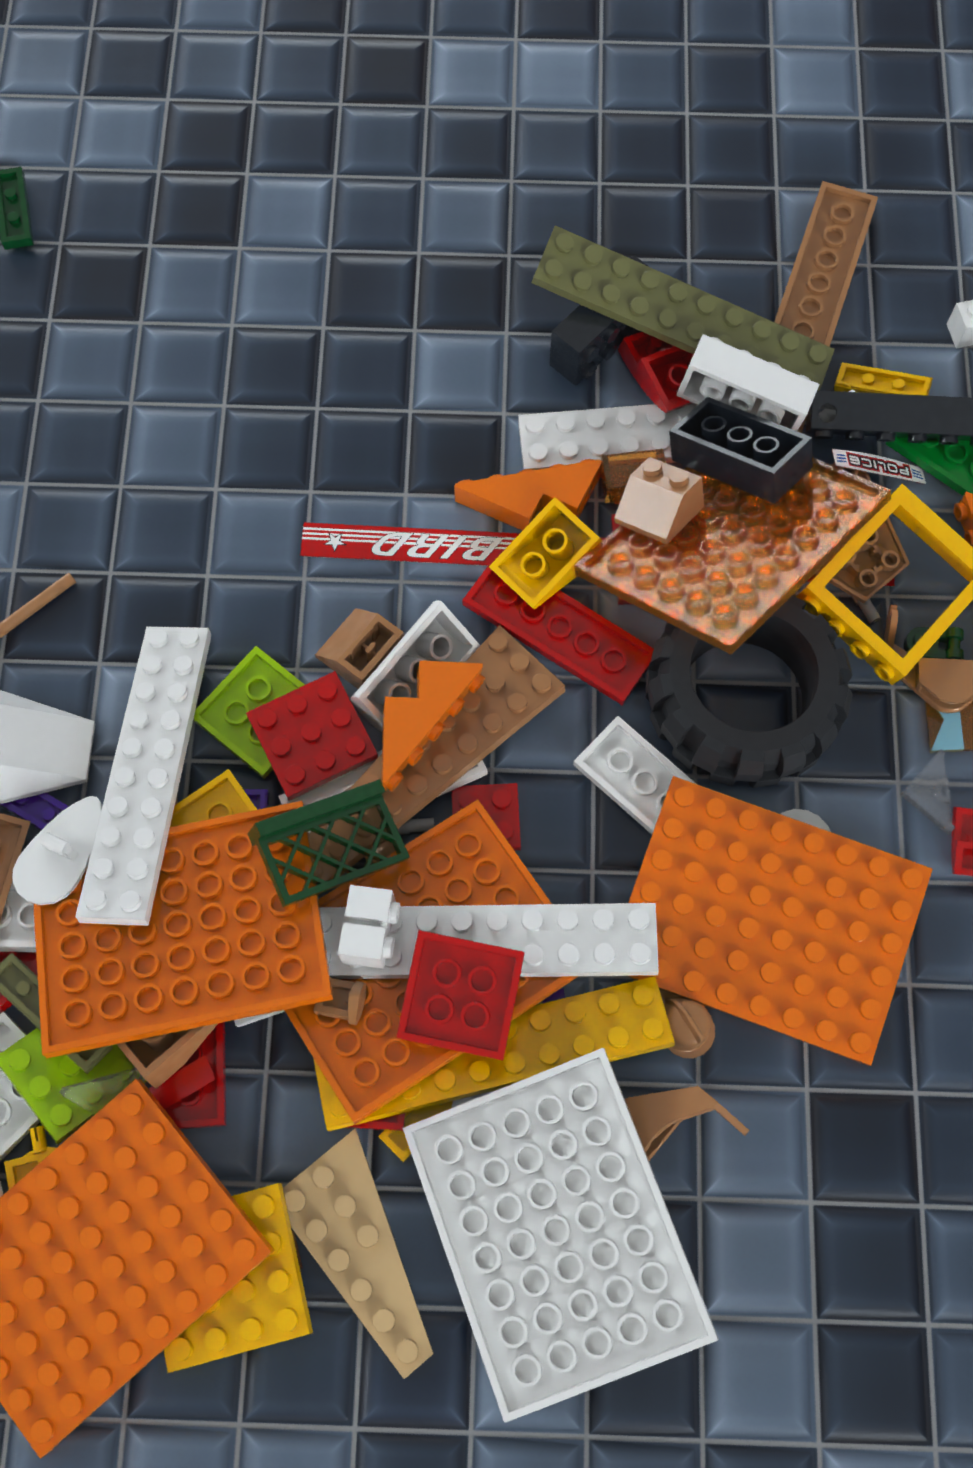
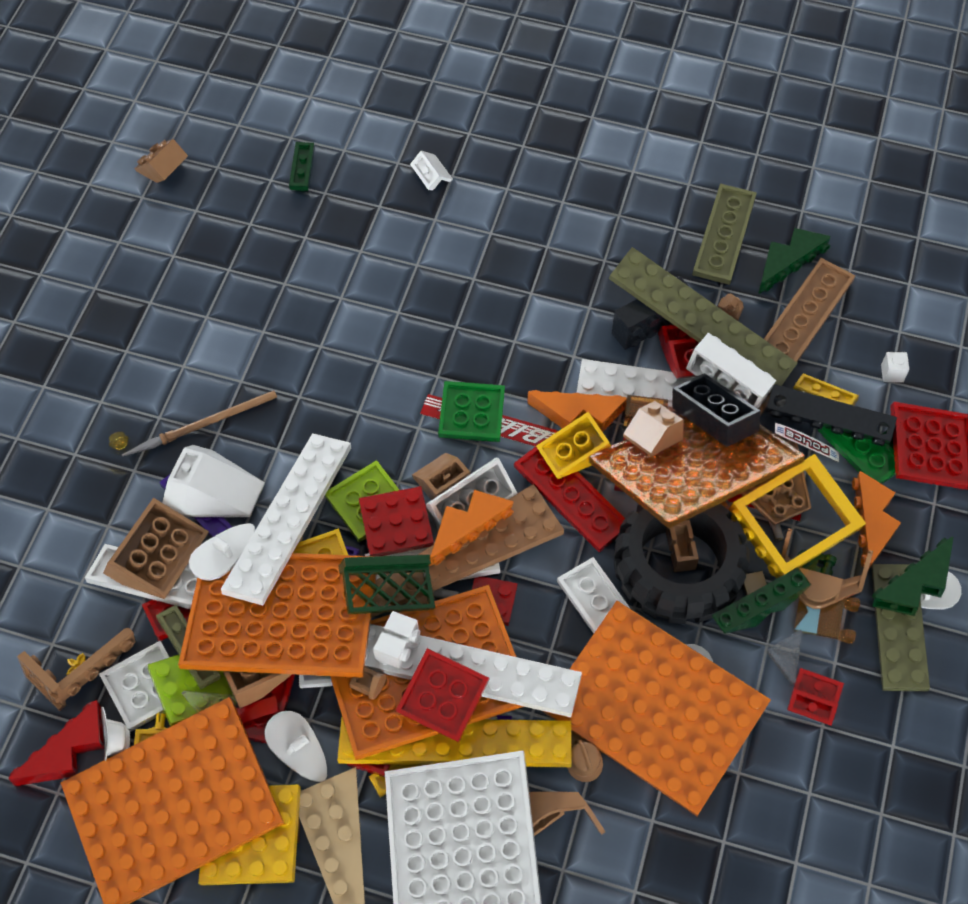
camera: 15 degrees right, 10 degrees down
(211, 171) = (430, 170): none -> white panel
(256, 1119) = (296, 745): none -> white shield
(377, 535) = (471, 411): none -> green plate
(674, 175) = (724, 234): none -> olive plate
(714, 281) = (731, 305): none -> medium nougat piece
(744, 684) = (679, 540): none -> medium nougat piece
(774, 192) = (786, 259): none -> dark green slope
(863, 697) = (753, 582): none -> tan tile
(882, 724) = (759, 604): none -> dark green slope

